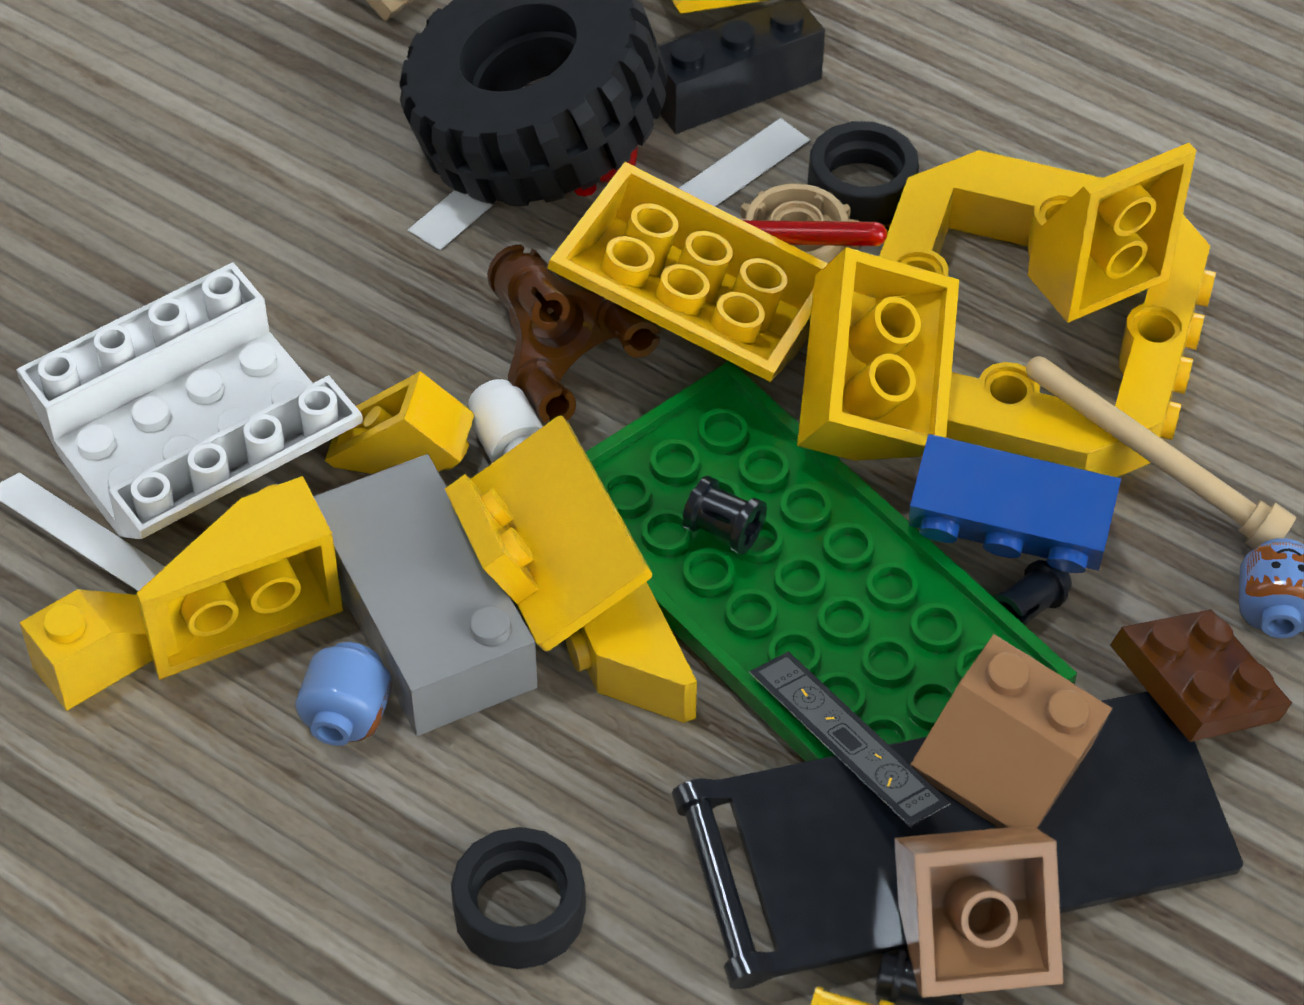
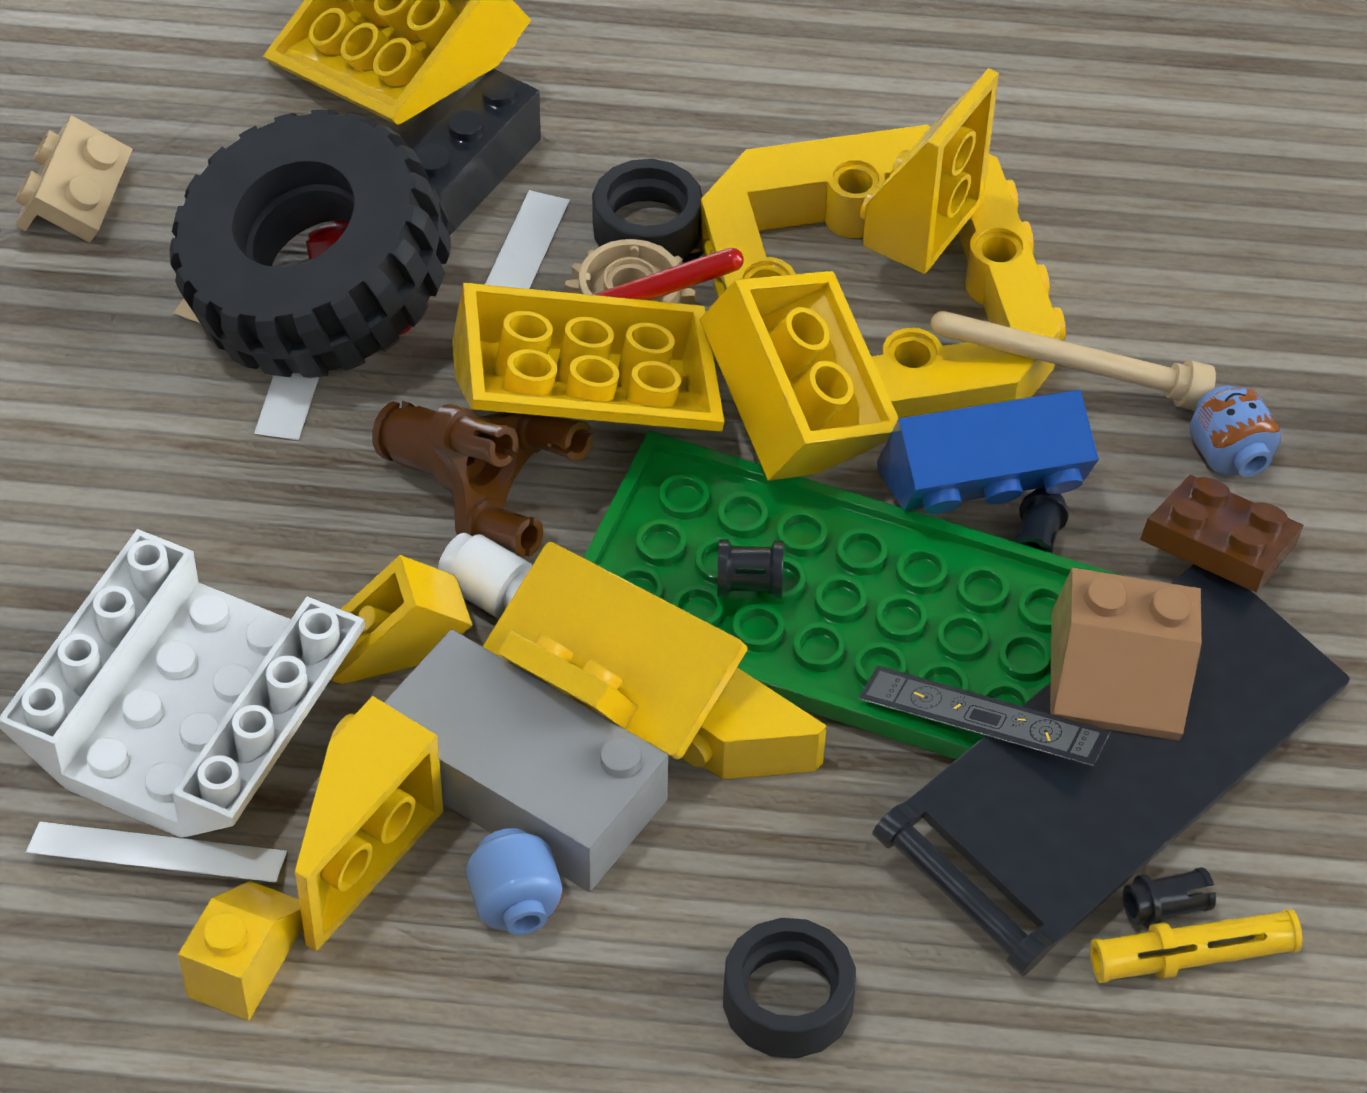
camera: 30 degrees left, 0 degrees up
(980, 909) = (1190, 807): medium nougat slope -> none

